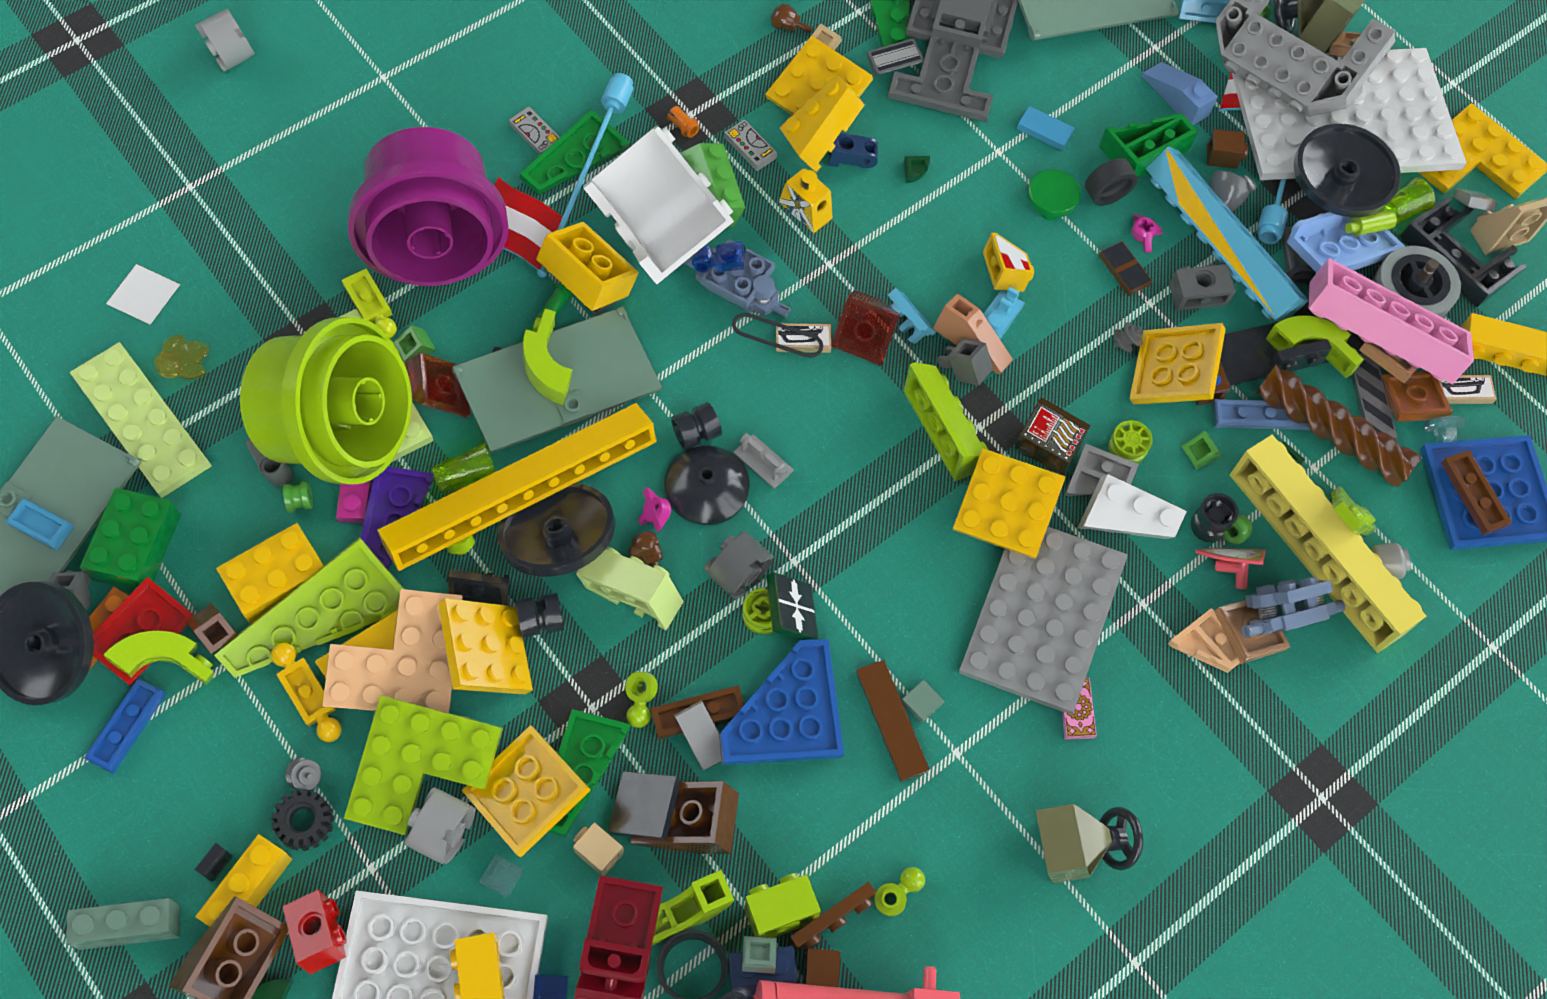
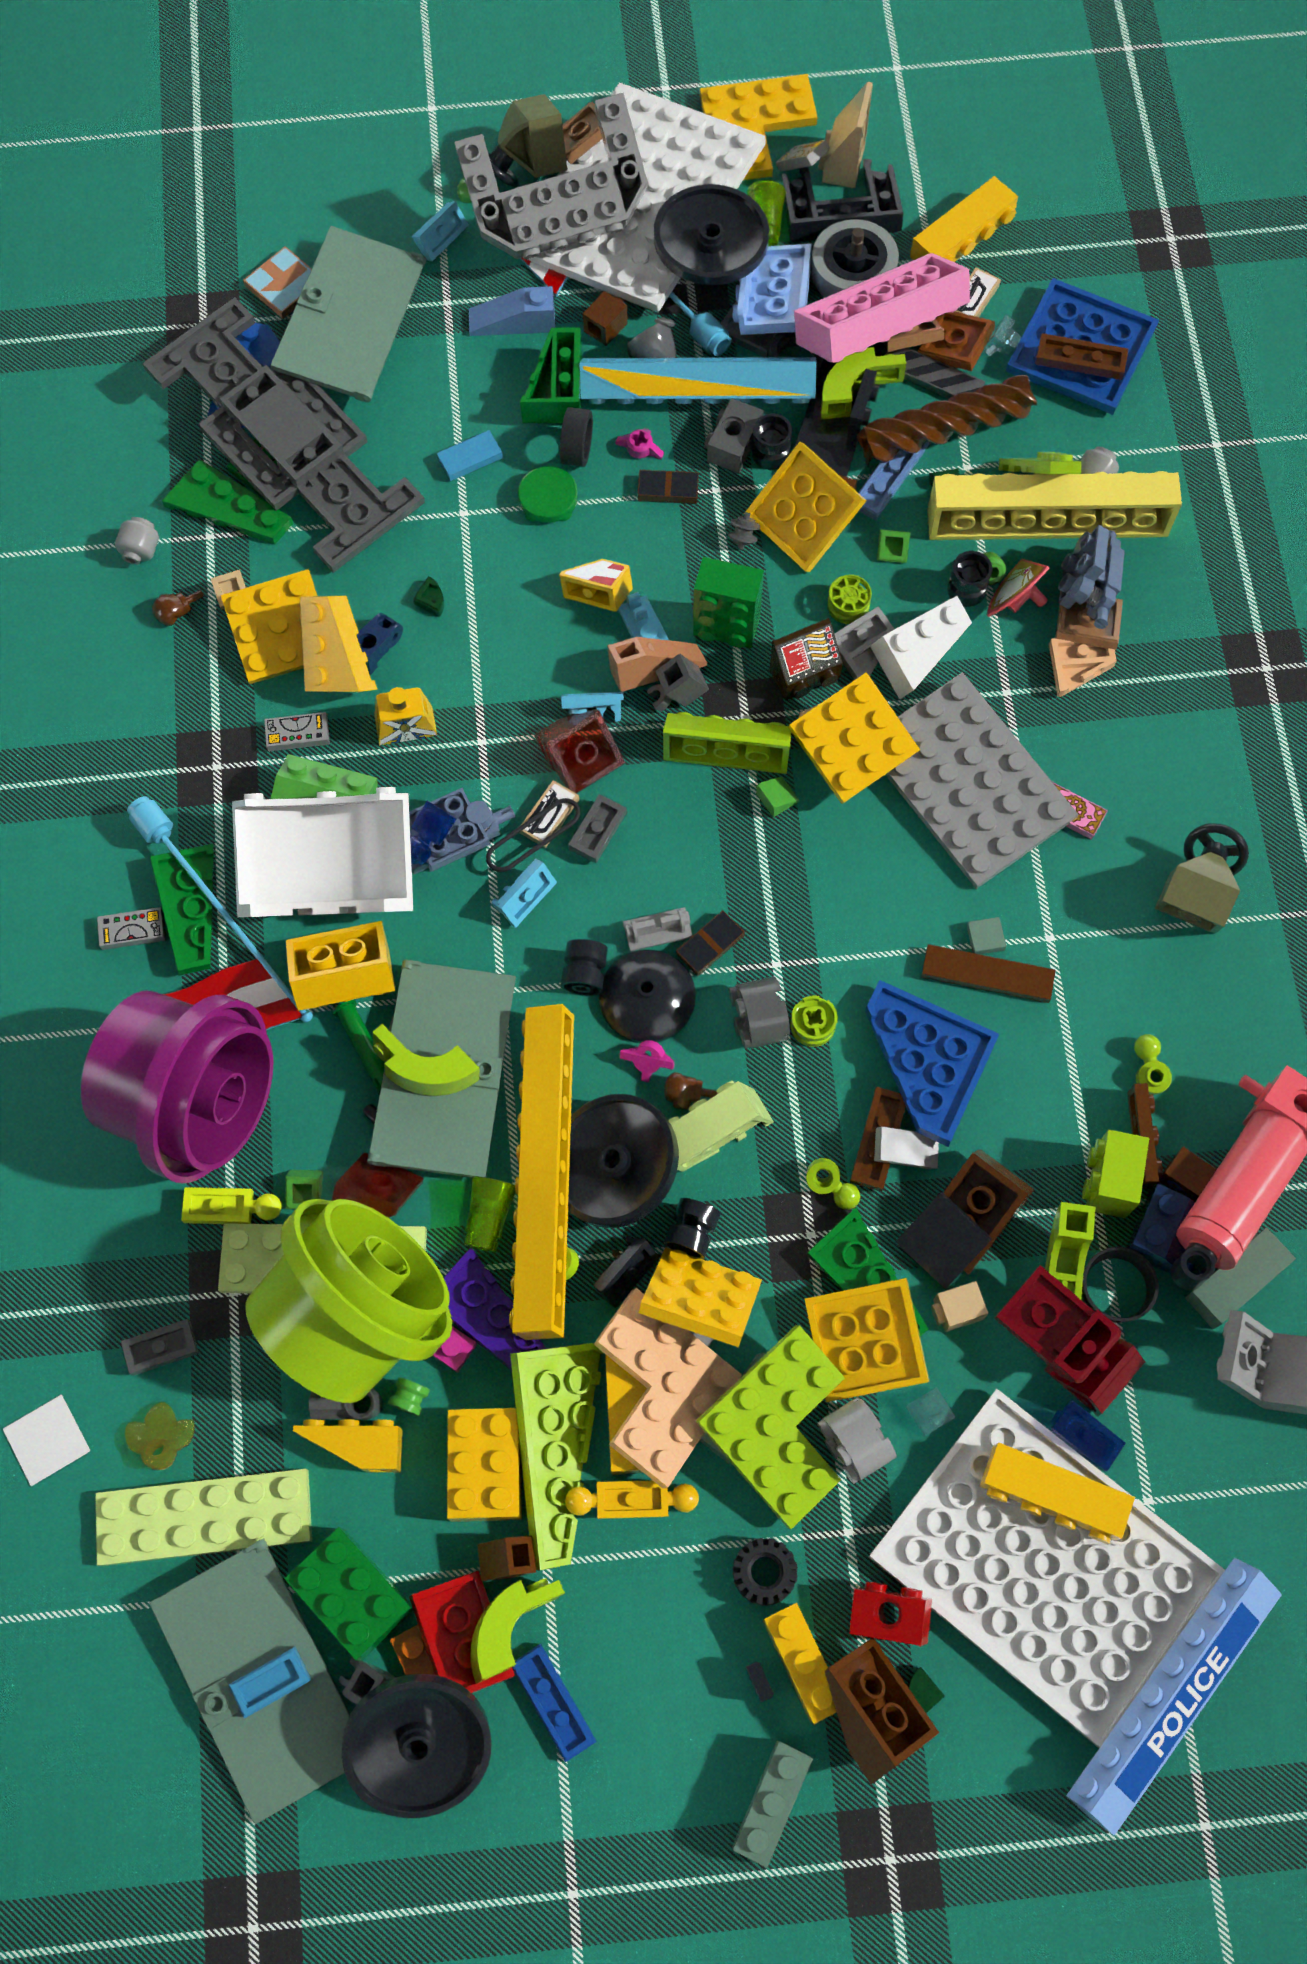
camera: 50 degrees left, 5 degrees up
(241, 486) = (366, 1447): none -> yellow slope
(244, 321) = (159, 1347): none -> dark grey plate
(303, 774) = (718, 1546): wheel -> none
(687, 125) = (225, 778): orange pin -> none
(728, 355) = (525, 893): none -> medium azure plate
(759, 954) = (1153, 1216): sand green tile -> none
(777, 503) = (710, 943): none -> black tile
(791, 607) = (831, 992): tile -> none
(813, 375) = (597, 828): none -> dark grey plate
(894, 57) = (294, 537): slope -> none
(930, 483) = (776, 795): none -> bright green slope
(1052, 352) = (727, 602): none -> green brick
(1217, 307) = (771, 441): none -> black wheel
(1374, 223) = (774, 253): lime cylinder -> none

